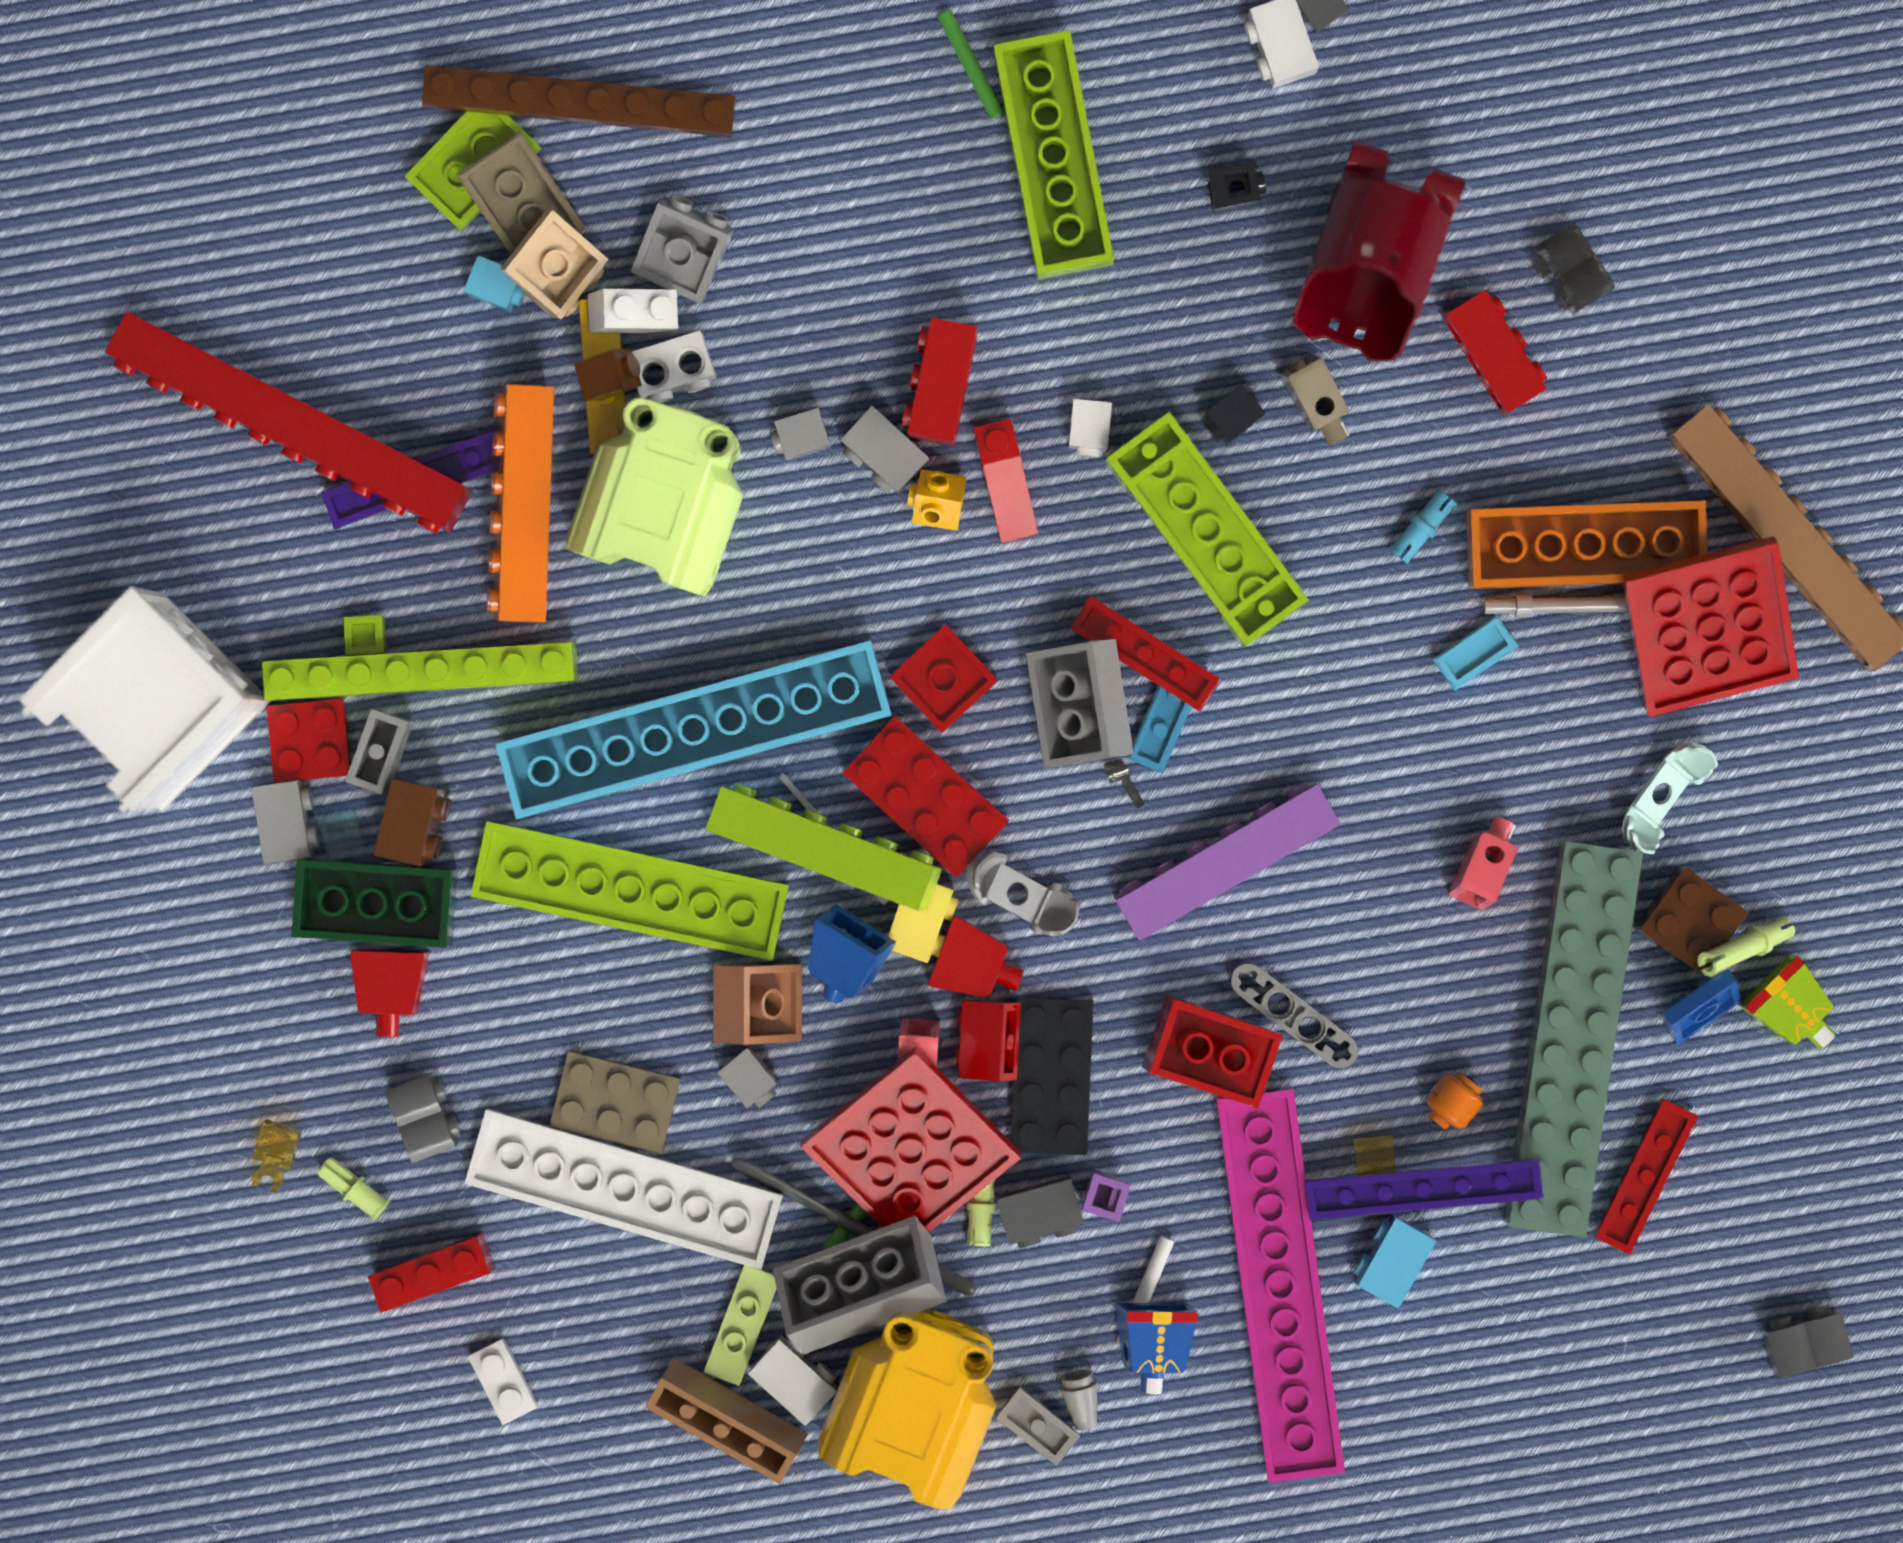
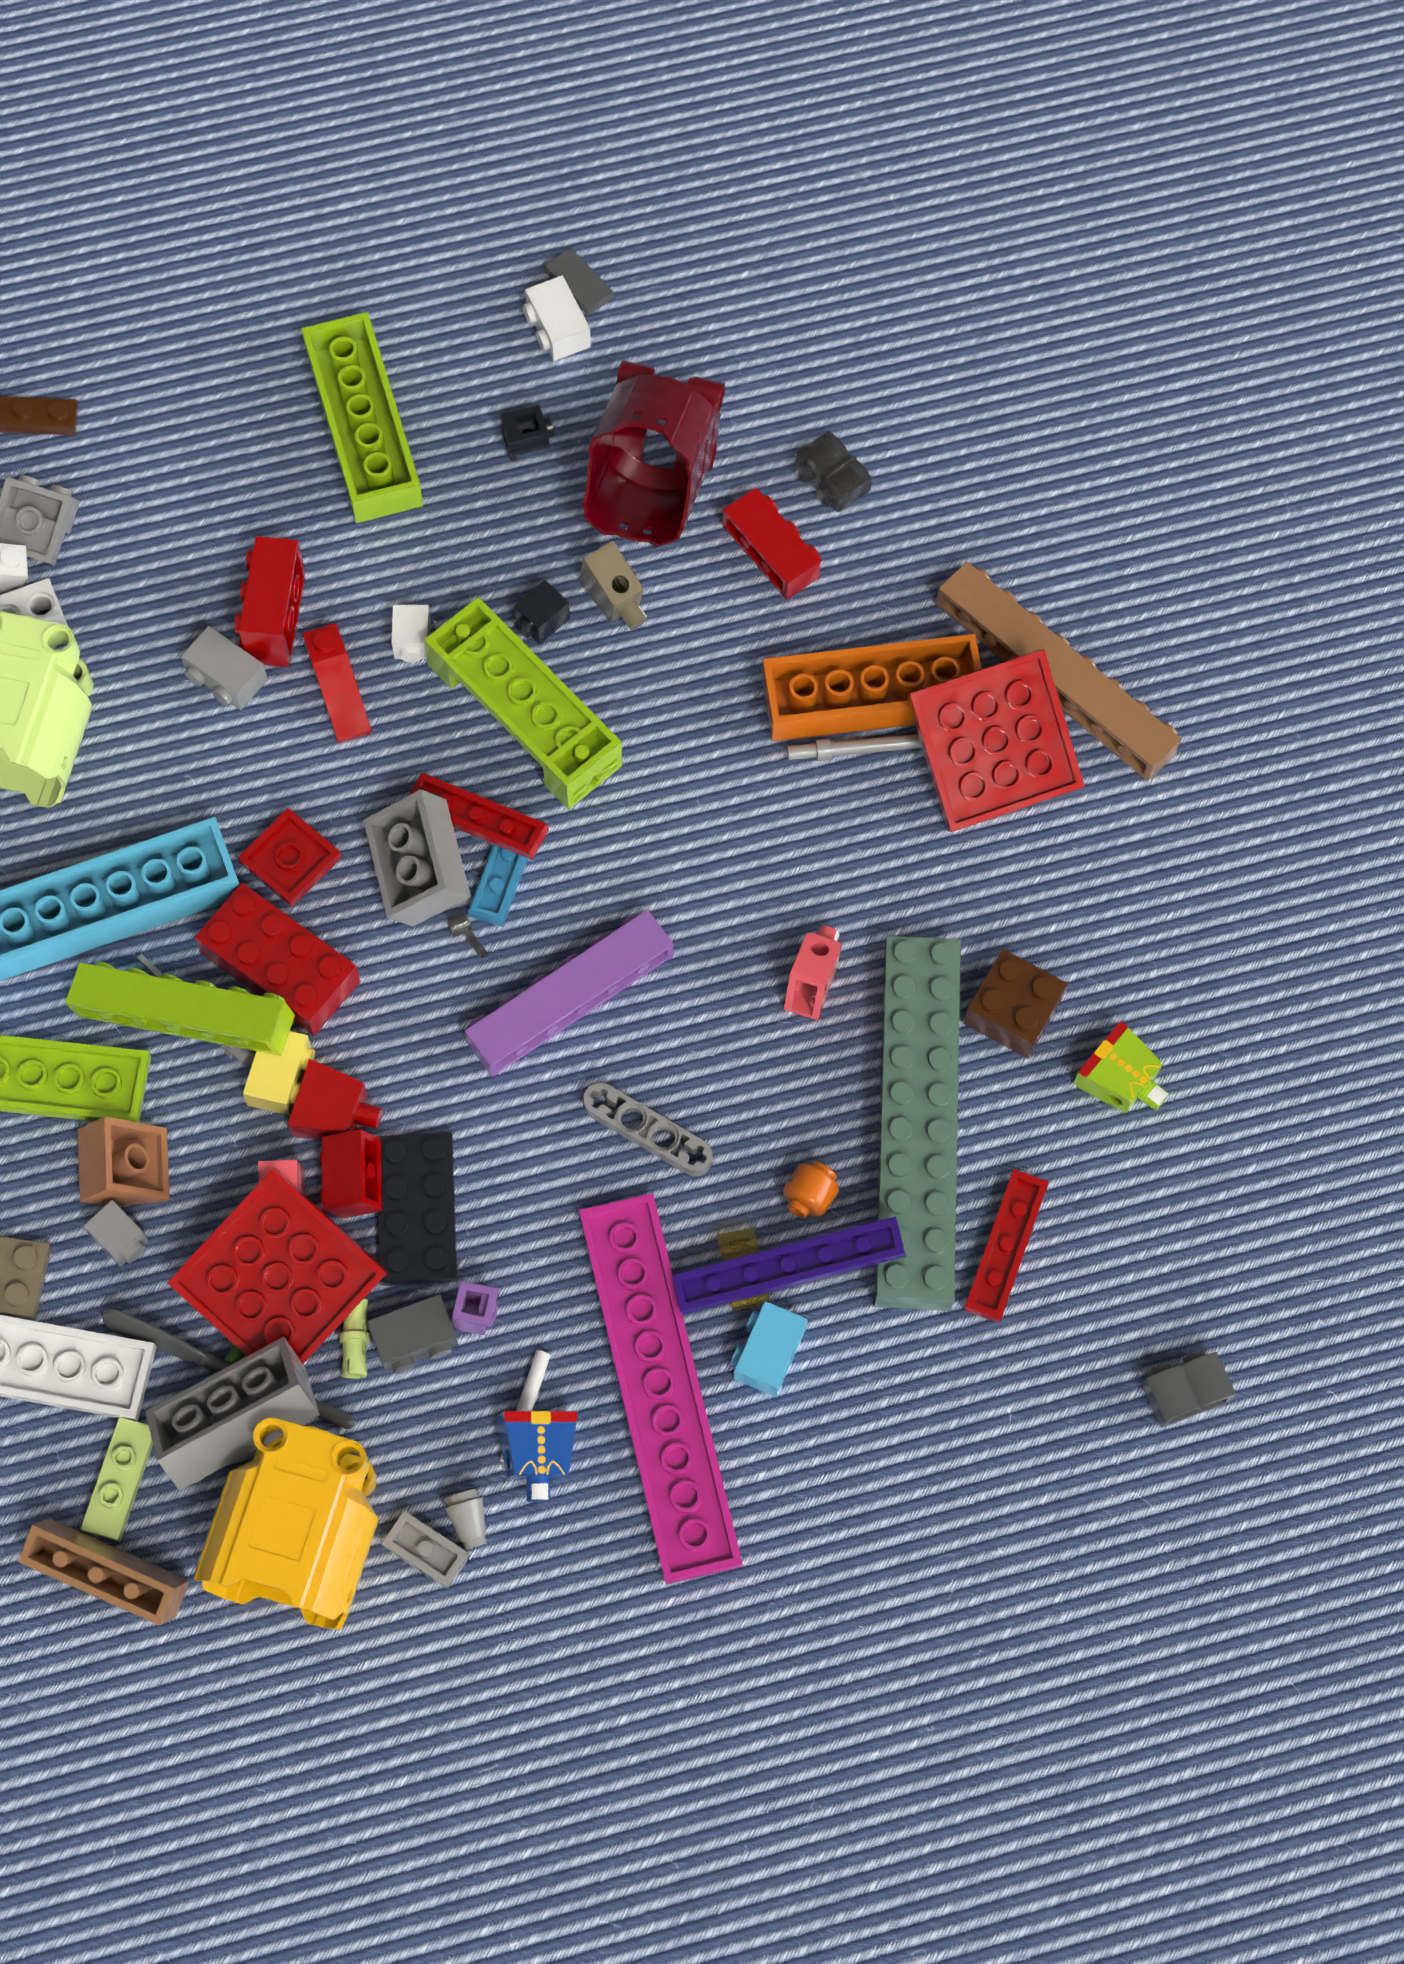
camera: 10 degrees left, 20 degrees down
(794, 1379) = (171, 1524): white brick -> none
(800, 435) = (146, 662): light grey brick -> none
(846, 953) = (206, 1104): blue torso -> none
(937, 499) = (274, 702): yellow brick -> none
(970, 64) = (286, 362): bright green bar -> none
(1048, 909) = (396, 1051): light grey piece -> none
(1211, 1051) = (569, 1162): red slope -> none
(1423, 526) = (723, 690): medium azure pin -> none
(1475, 653) = (784, 795): medium azure tile -> none
(1680, 766) = (988, 870): light aqua piece -> none
(1693, 1012) = (1036, 1075): blue plate -> none
(1756, 941) = (1079, 1013): yellowish green pin -> none

